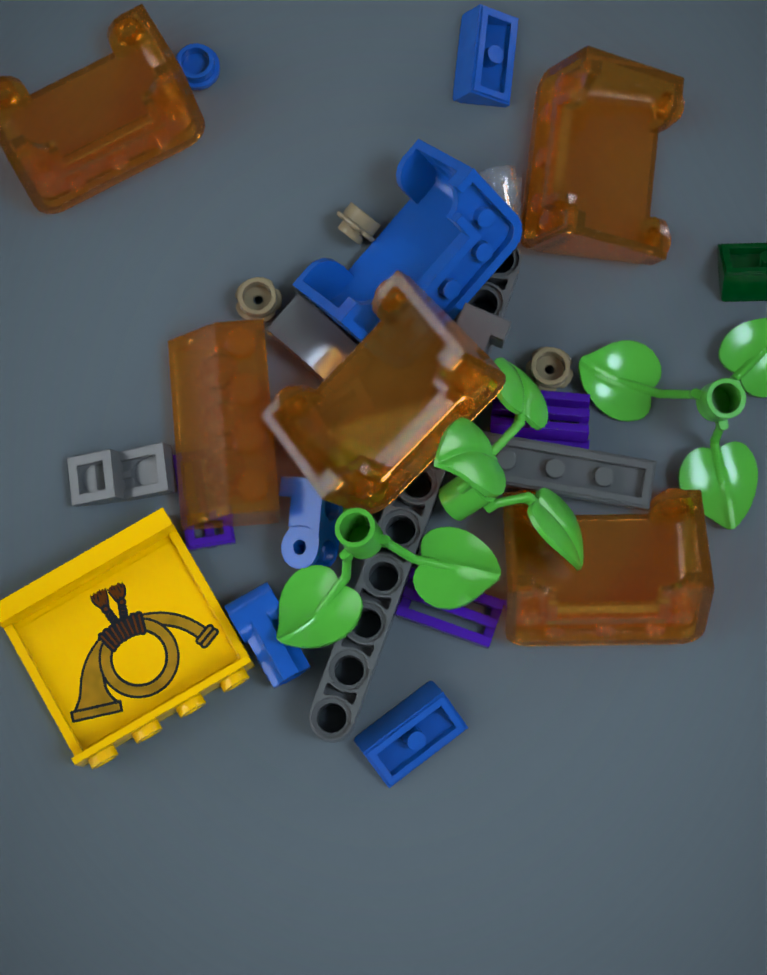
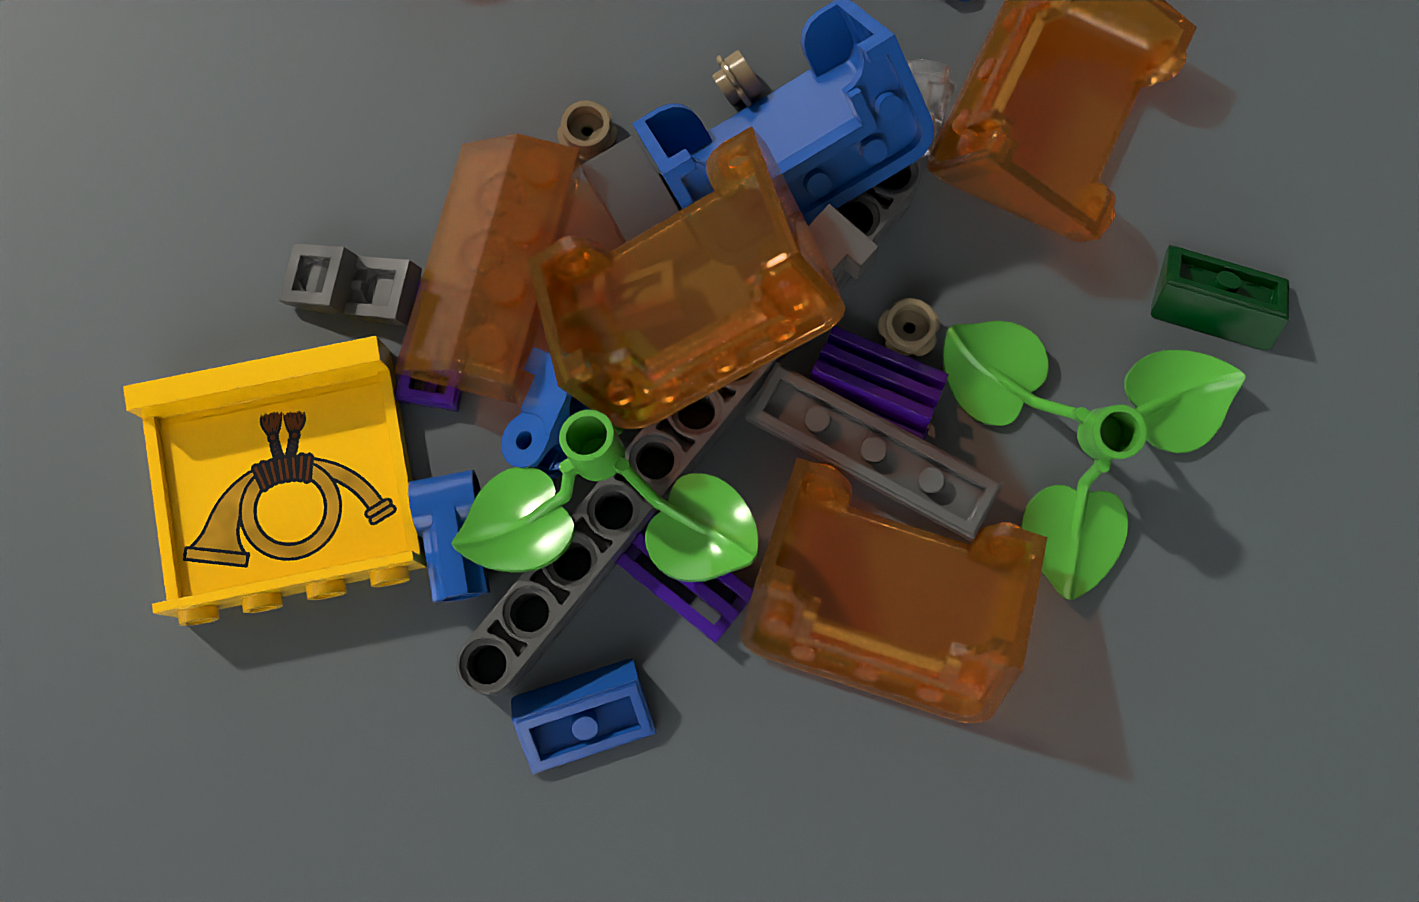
camera: 20 degrees right, 0 degrees up
(481, 479) = (761, 393): bright green plant -> none

